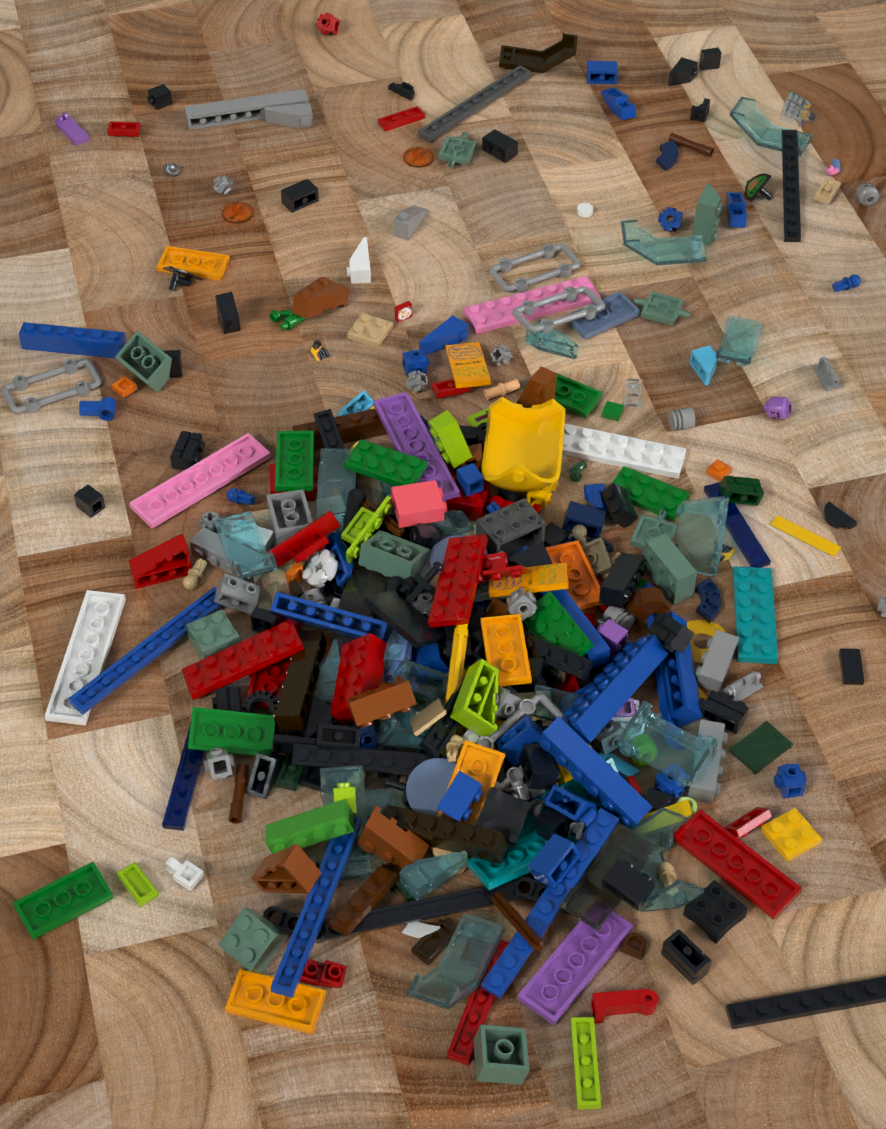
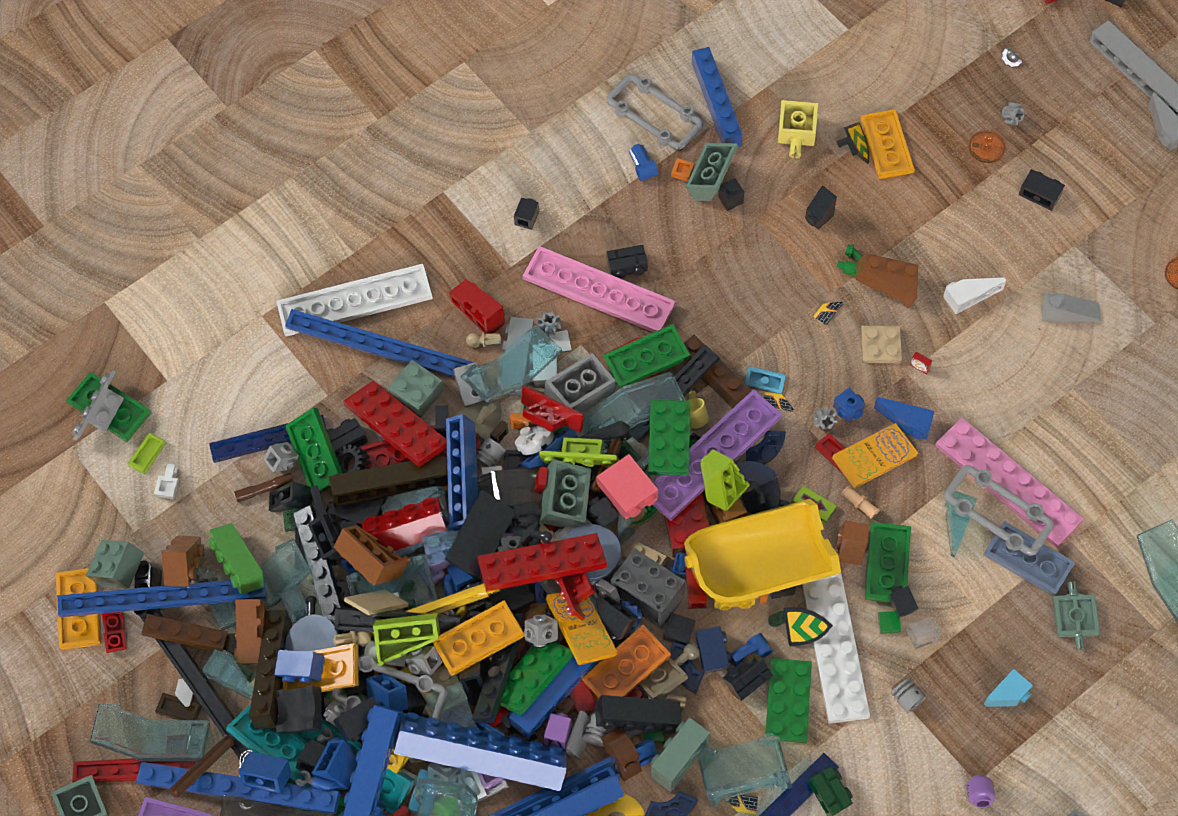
camera: 70 degrees right, 15 degrees up
(64, 901) = (102, 409): none -> light grey bracket
(139, 301) = (797, 125): none -> light yellow brick
(240, 497) = (594, 332): blue axle -> none
(345, 791) = (276, 573): lime brick -> none
(369, 567) = (541, 479): none -> red tile
(459, 522) = (640, 533): clear light blue slope -> none
(470, 479) = (692, 520): blue brick -> none
(496, 355) = (906, 482): light grey gear -> none
(547, 251) = (1079, 492): light grey bar -> none
(594, 453) = (804, 626): none -> shield
(604, 389) = (902, 601): none -> black brick
(652, 527) = (730, 724): sand green plate -> none
(671, 633) = (580, 783): black brick -> none
(718, 470) = (857, 760): orange plate -> none
(739, 341) = (1058, 716): clear light blue windscreen -> none

